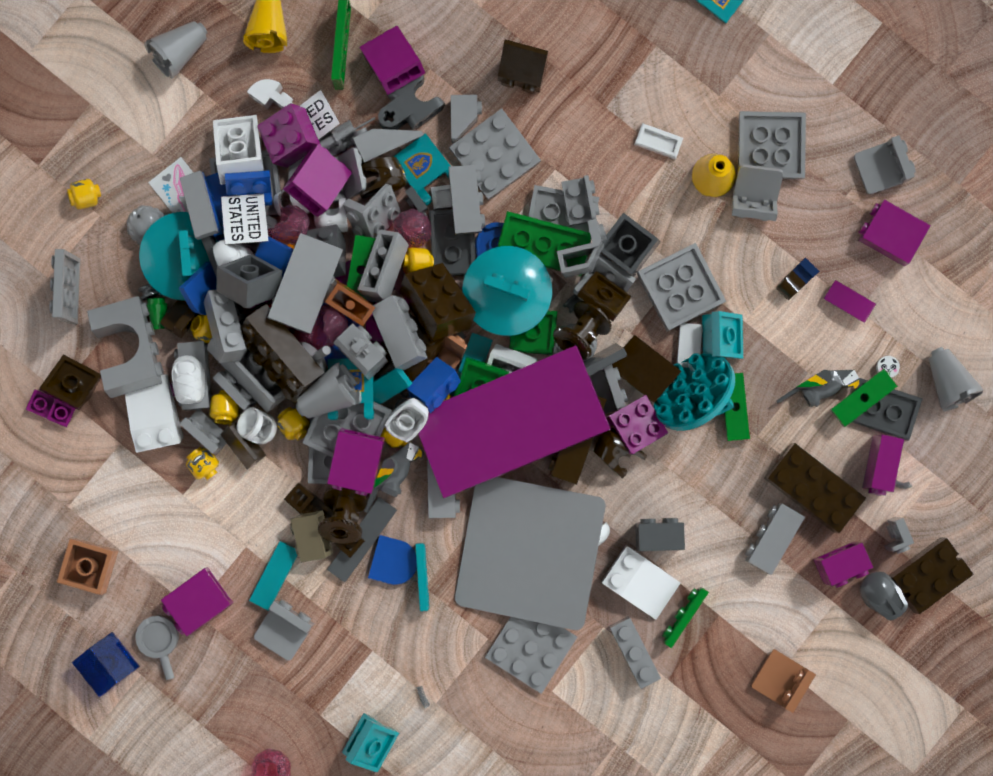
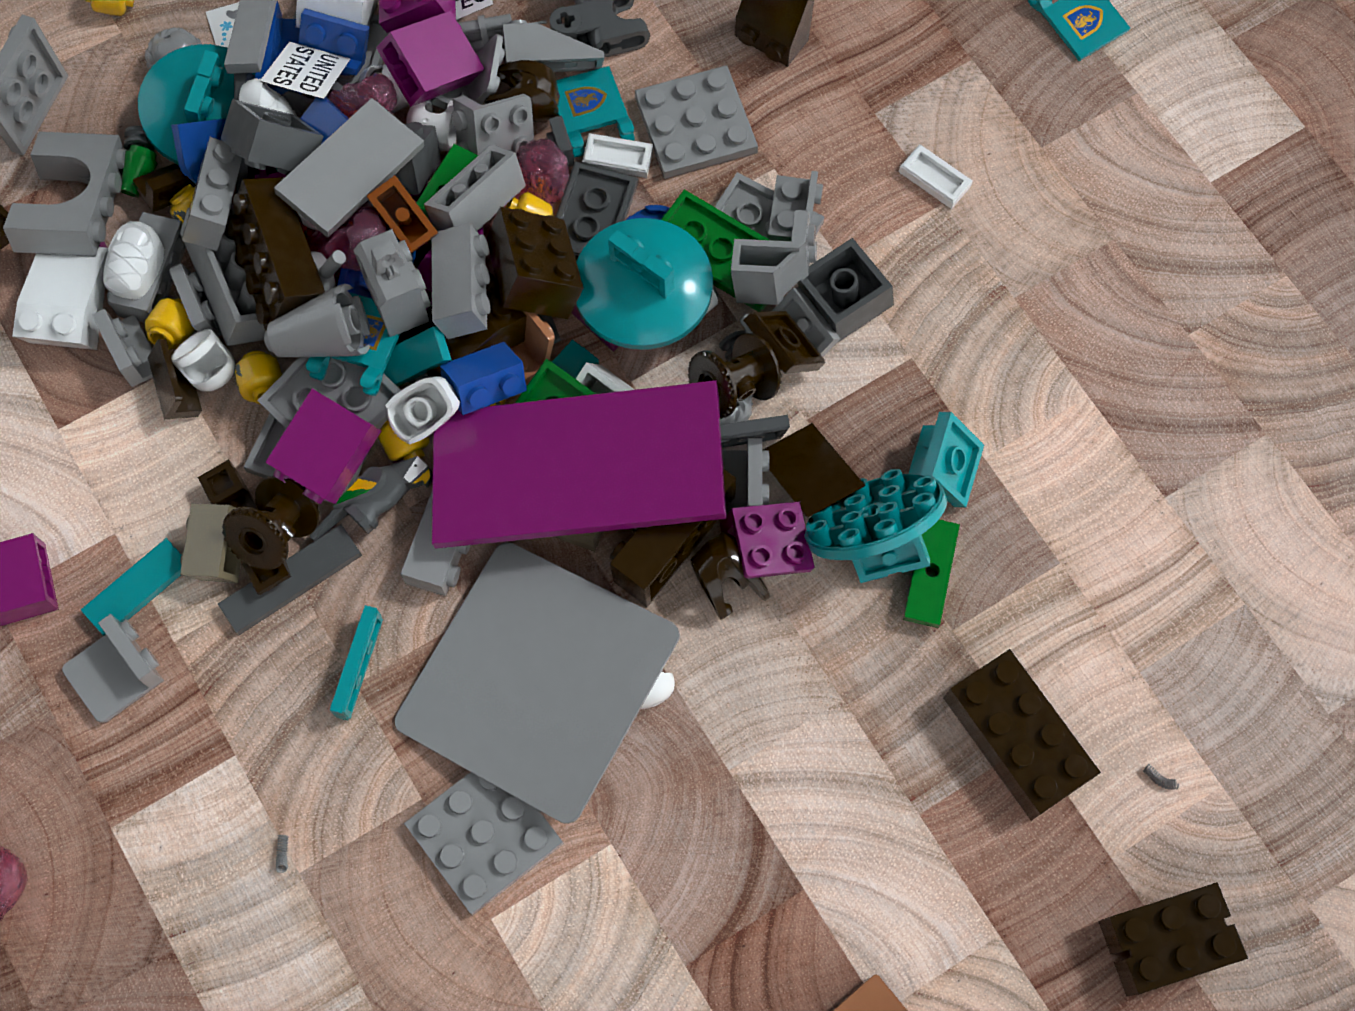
camera: 15 degrees right, 15 degrees down
(202, 463) = (102, 388): yellow head -> none
(369, 743) = (164, 899): teal bracket -> none
(393, 561) = (321, 627): blue tile -> none
(463, 114) = (671, 54): light grey slope -> none
(466, 199) = (631, 155): light grey brick -> none
(538, 339) = (659, 366): green tile -> none
(634, 652) = (645, 897): light grey brick -> none
(640, 582) = (694, 788): white slope -> none
(660, 536) = (749, 720): dark grey brick -> none
(681, 287) = (903, 374): light grey plate -> none
(684, 616) = (745, 867): green tile -> none
(688, 342) = (892, 453): white tile -> none
(713, 175) = (1004, 236): yellow cone -> none
(756, 192) = (1059, 277): light grey bracket -> none
(773, 141) = (1099, 229): light grey plate -> none
(774, 538) = (930, 791): light grey brick -> none
(797, 278) = (1084, 419): leg -> none
(824, 385) = (1079, 582): dark grey animal -> none
(843, 564) = (1033, 866): magenta brick -> none
(850, 301) = (1156, 476): magenta slope -> none
(873, 389) = (1156, 613): green tile -> none
(882, 464) = (1142, 730): magenta brick -> none
(883, 595) = (1084, 942): dark grey helmet -> none
(884, 165) = (1262, 306): light grey bracket -> none
(888, 363) = (1187, 593): white tile -> none
(892, 414) = (1164, 654): dark grey tile -> none
(893, 232) = (1249, 400): magenta brick -> none
(898, 529) = (1141, 848): light grey bracket -> none
(952, 380) = (1288, 643): light grey cone -> none

